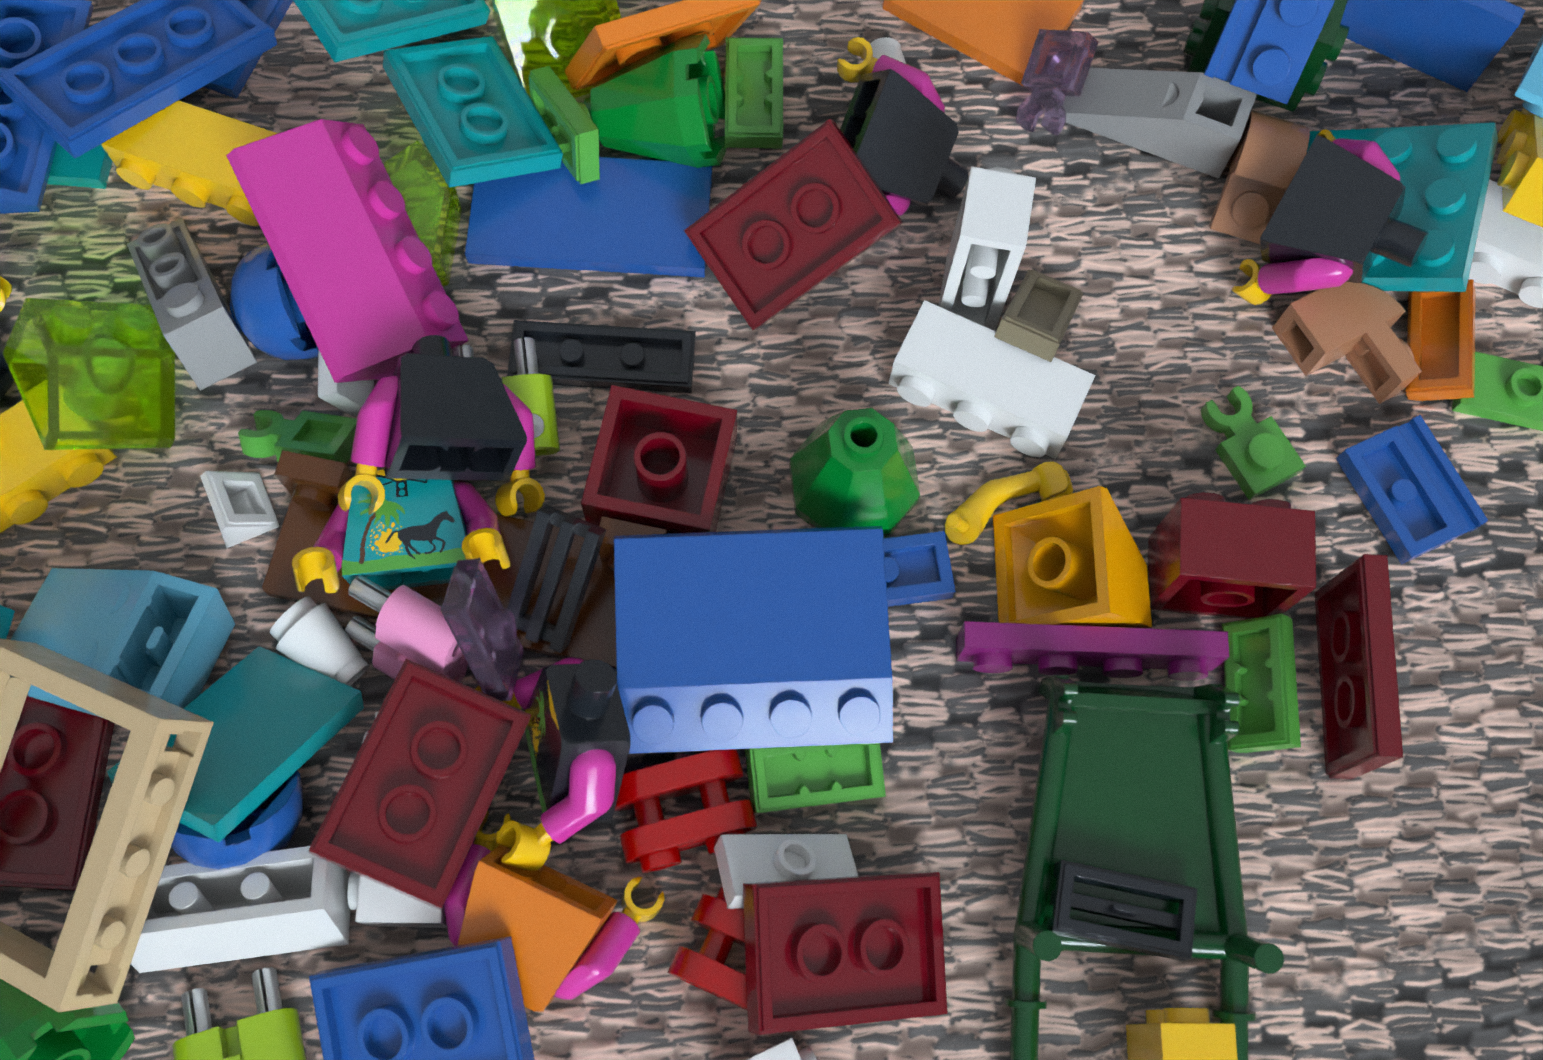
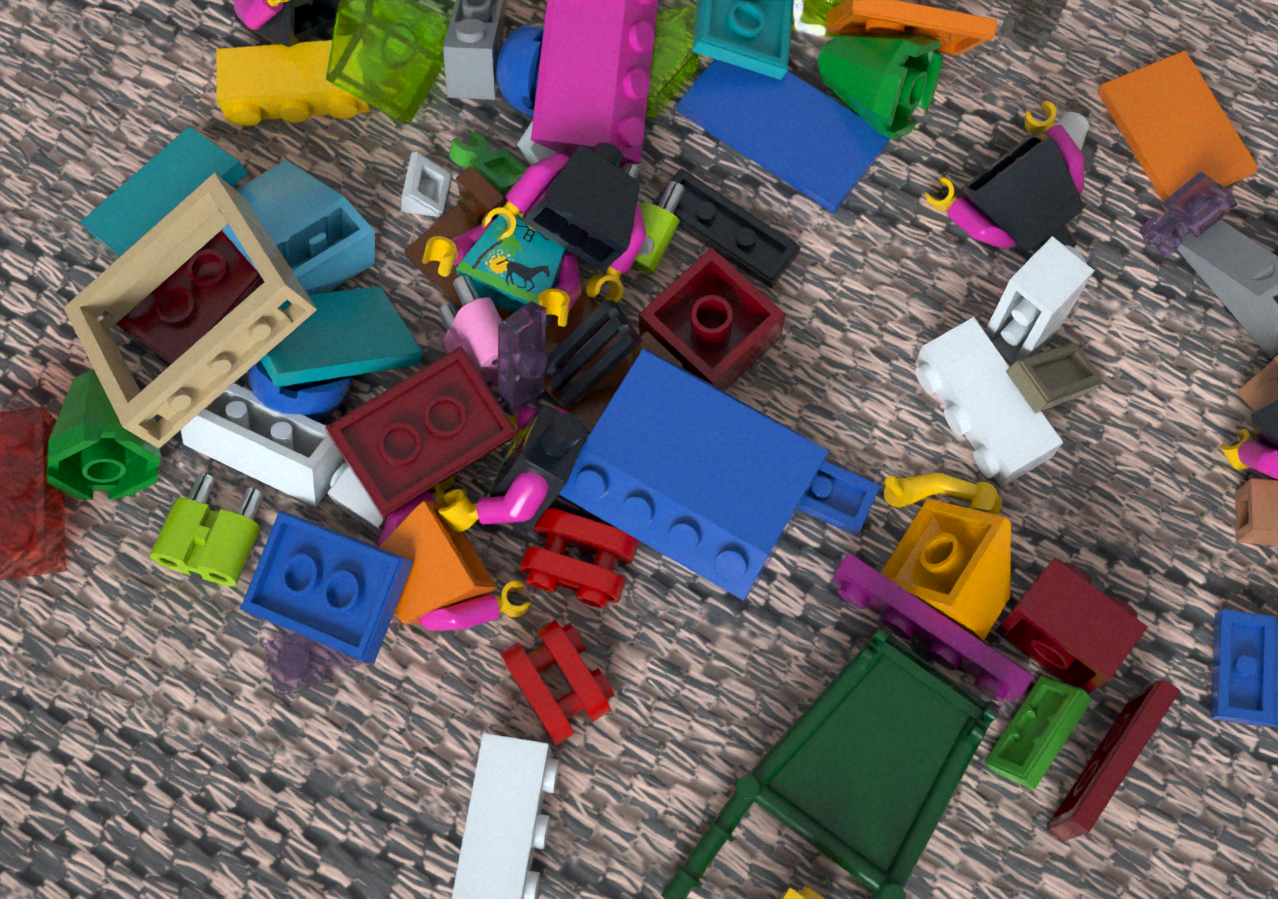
camera: 40 degrees right, 0 degrees up
(317, 640) = (418, 305): white cone -> none
(568, 123) = (804, 51): bright green plate -> none
(754, 93) = (956, 102): bright green plate -> none
(779, 858) = (619, 640): white plate -> none
(793, 225) = (914, 210): dark red tile -> none
(813, 775) = (680, 591): bright green plate -> none
(843, 951) = (621, 713): dark red tile -> none
(854, 473) = (845, 410): green cone -> none
(1064, 900) = (859, 845): black tile -> none
(1254, 452) = (1153, 572): bright green plate -> none

